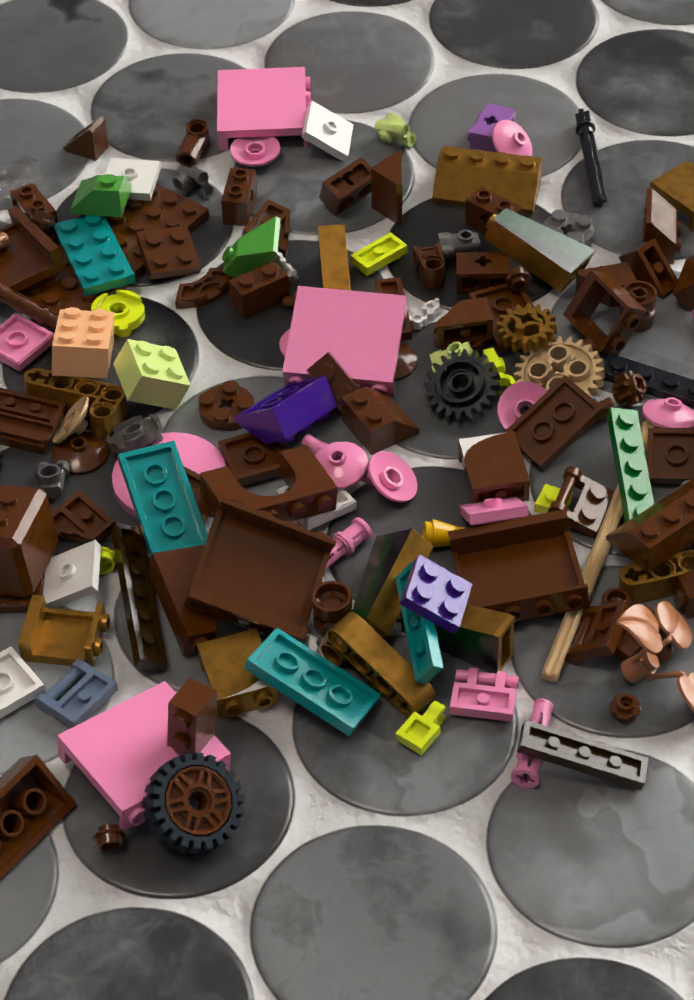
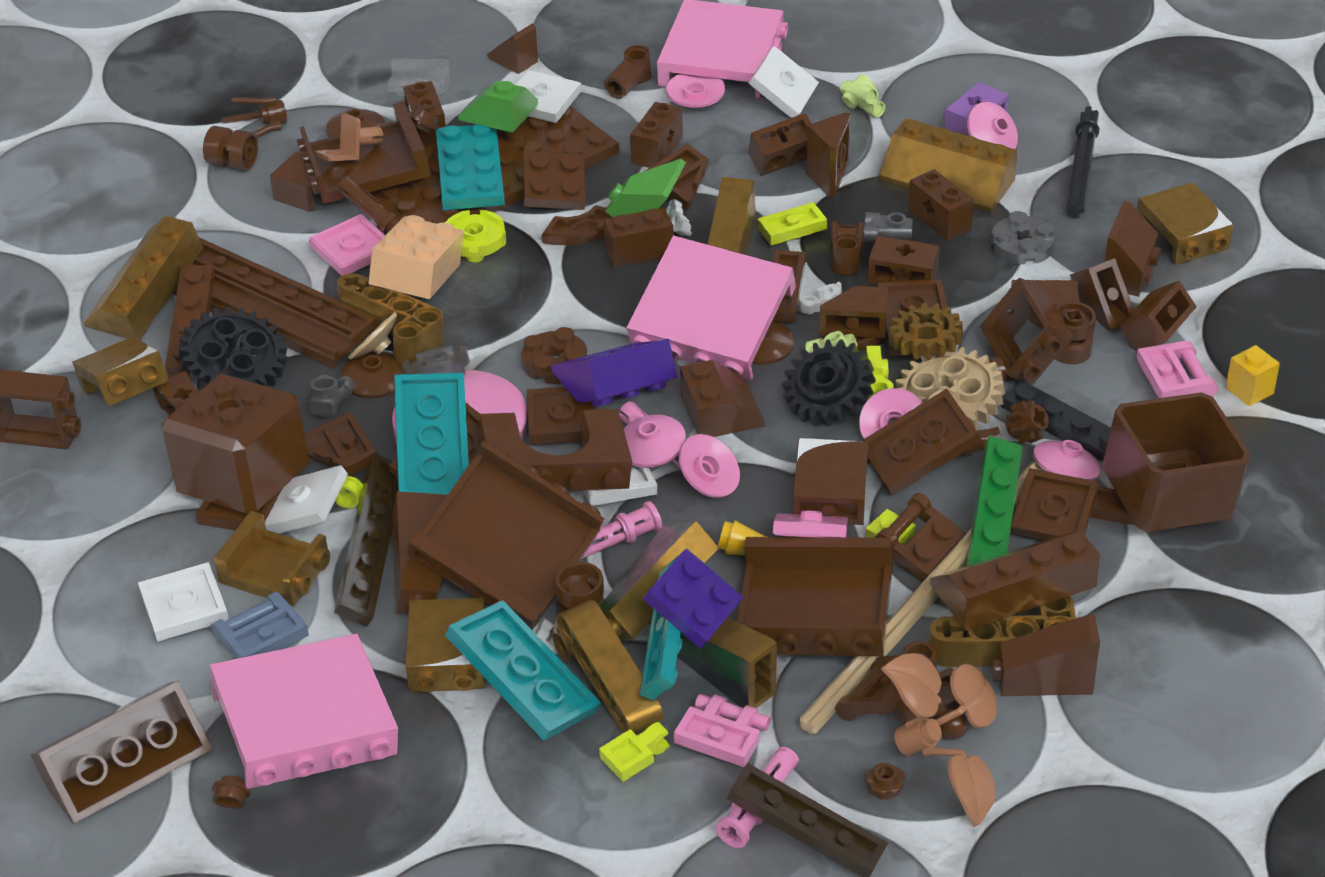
camera: 15 degrees right, 5 degrees down
(151, 374) = (478, 303): yellowish green brick -> none
(170, 808) = (309, 794): wheel -> none
(191, 717) = (359, 675): reddish brown brick -> none
(192, 179) = (612, 109): flat silver plate -> none
(337, 377) = (682, 340): reddish brown plate -> none
(518, 278) = (939, 276): reddish brown plate -> none
(538, 248) = (975, 247): slope -> none

